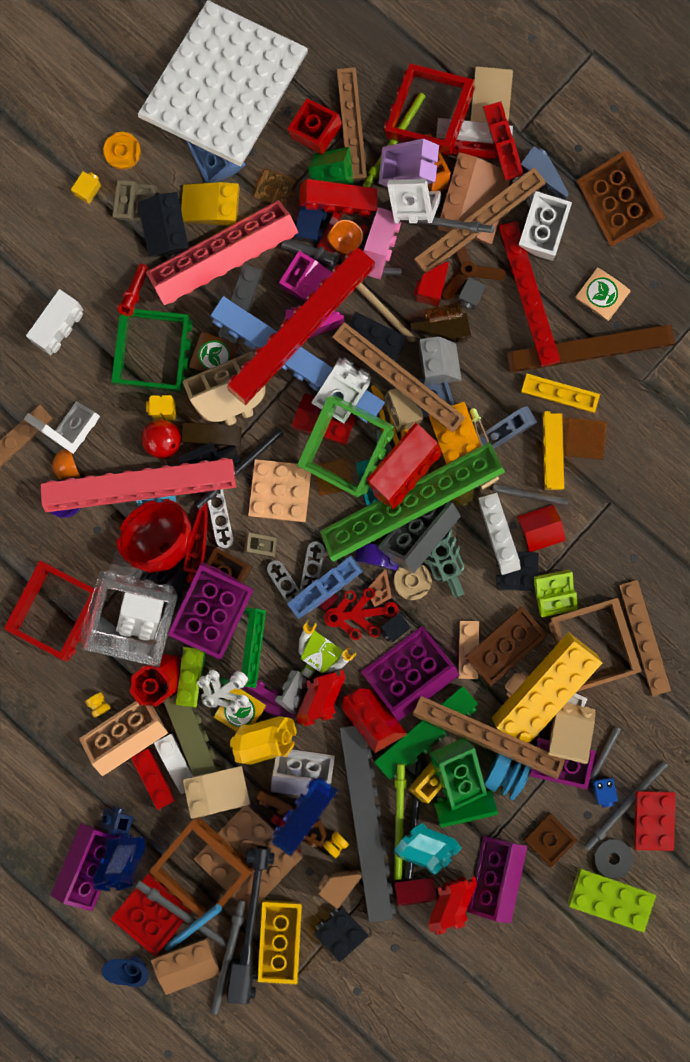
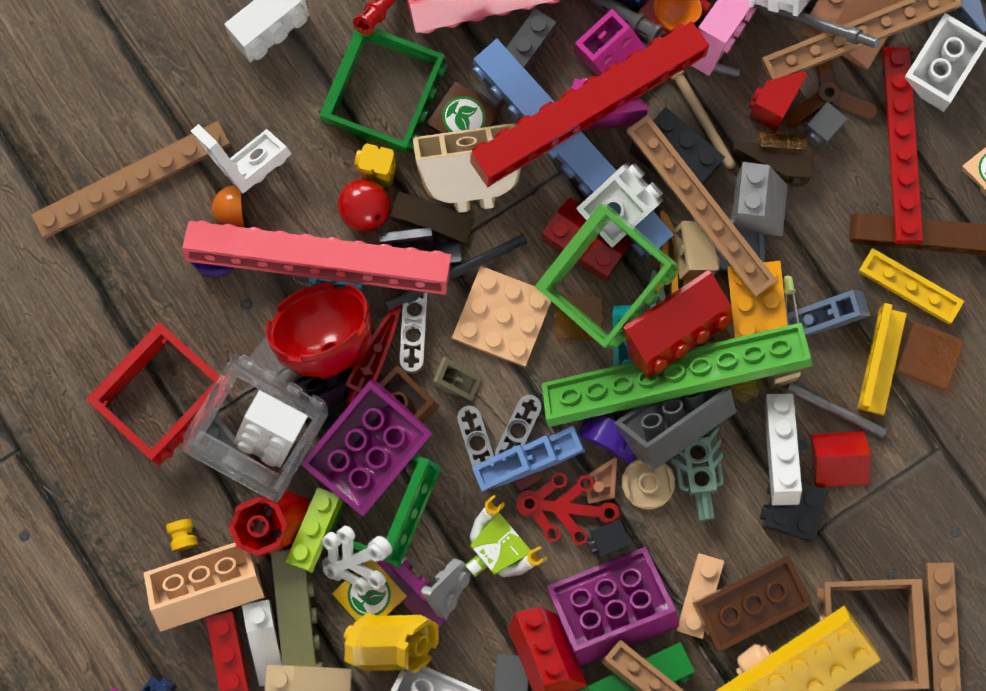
camera: 15 degrees right, 5 degrees down
(320, 698) = (482, 606): red brick -> none
(555, 593) = (837, 551): lime slope -> none

